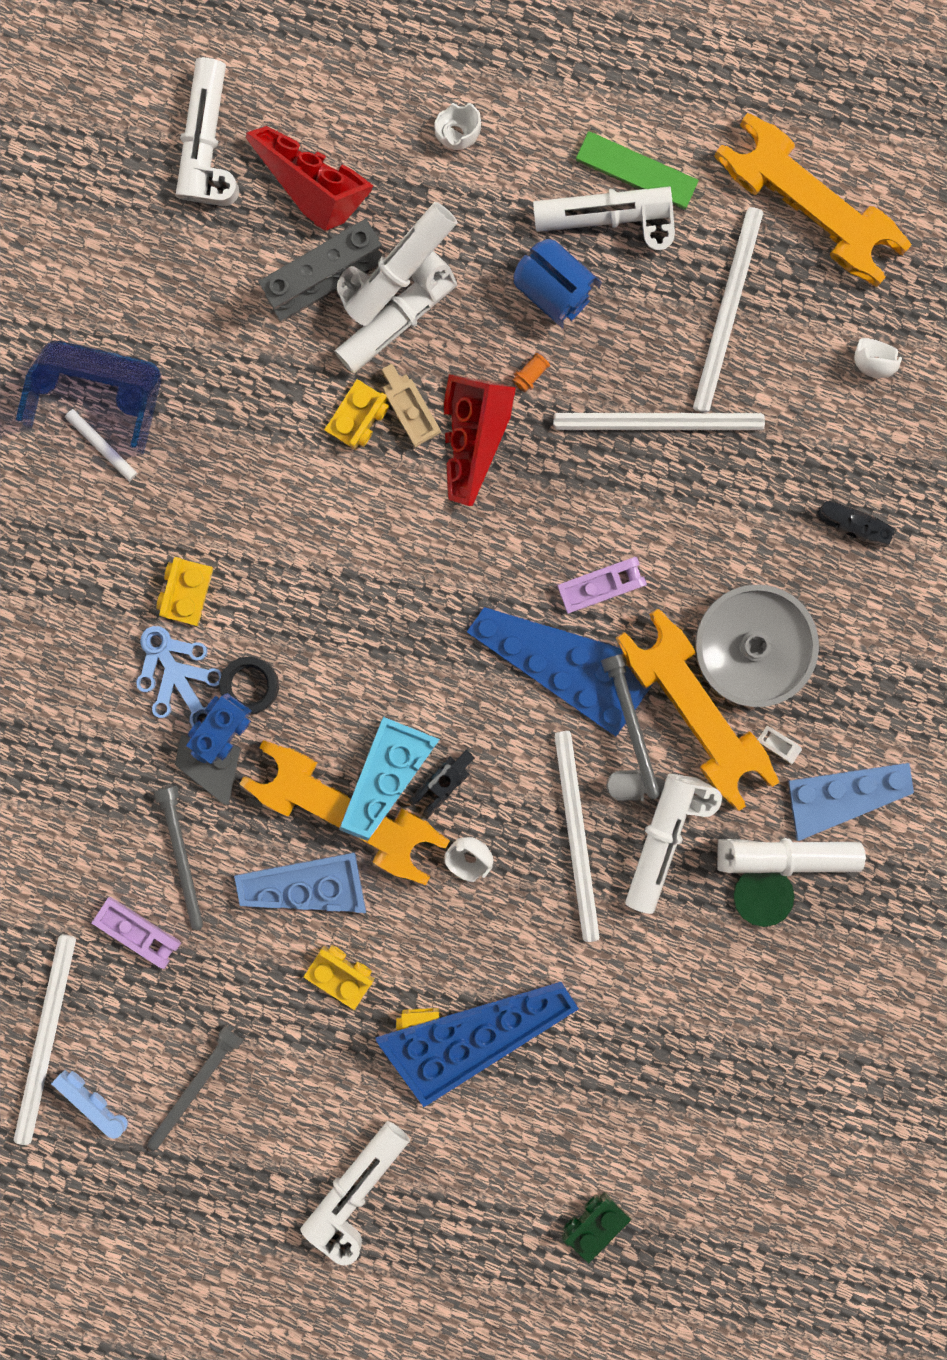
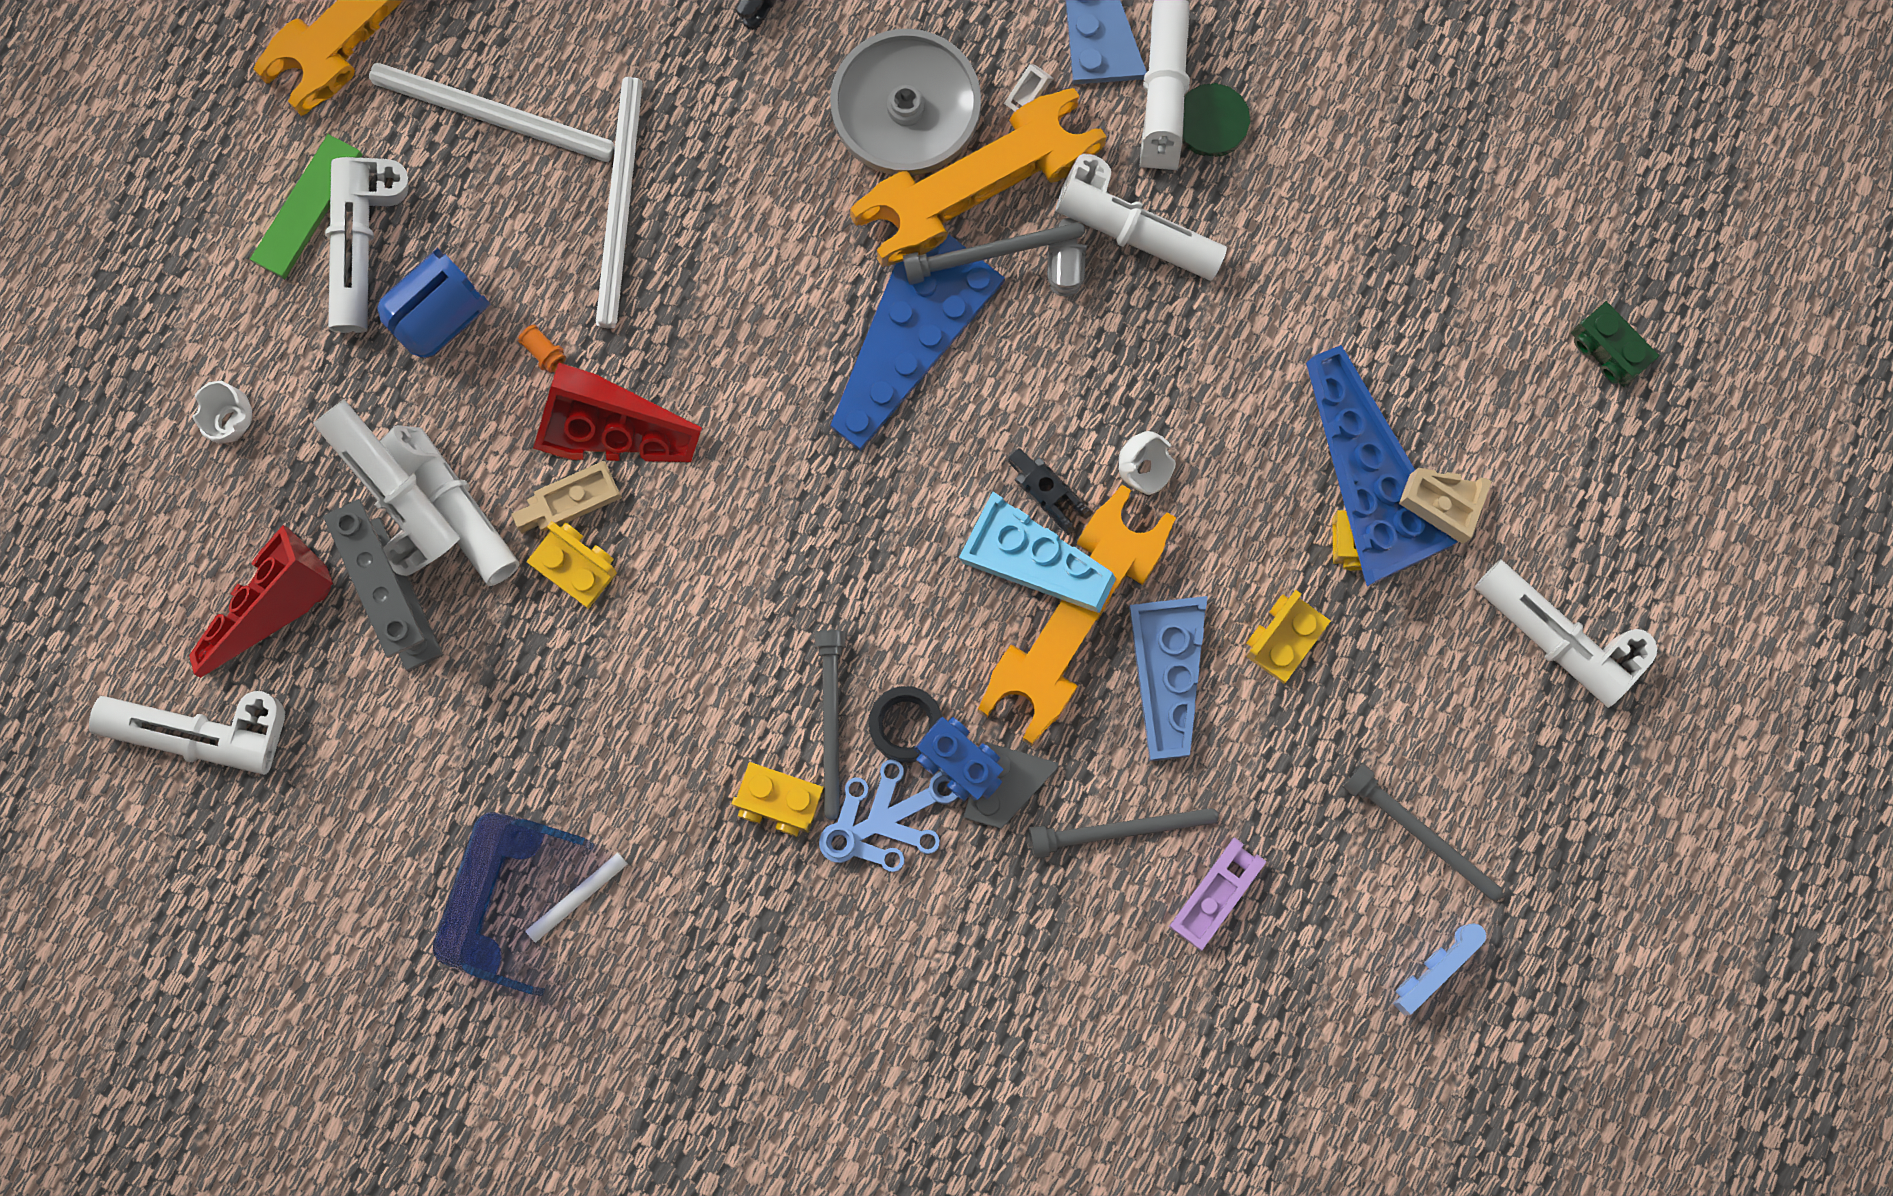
camera: 80 degrees left, 10 degrees down
(44, 1039) = (1353, 1026): white axle -> none
(305, 622) = (830, 647): none -> dark grey piece
(453, 1097) = (1446, 501): none -> tan wing
(577, 836) = (1125, 334): white axle -> none
(600, 585) = (816, 284): lavender plate -> none

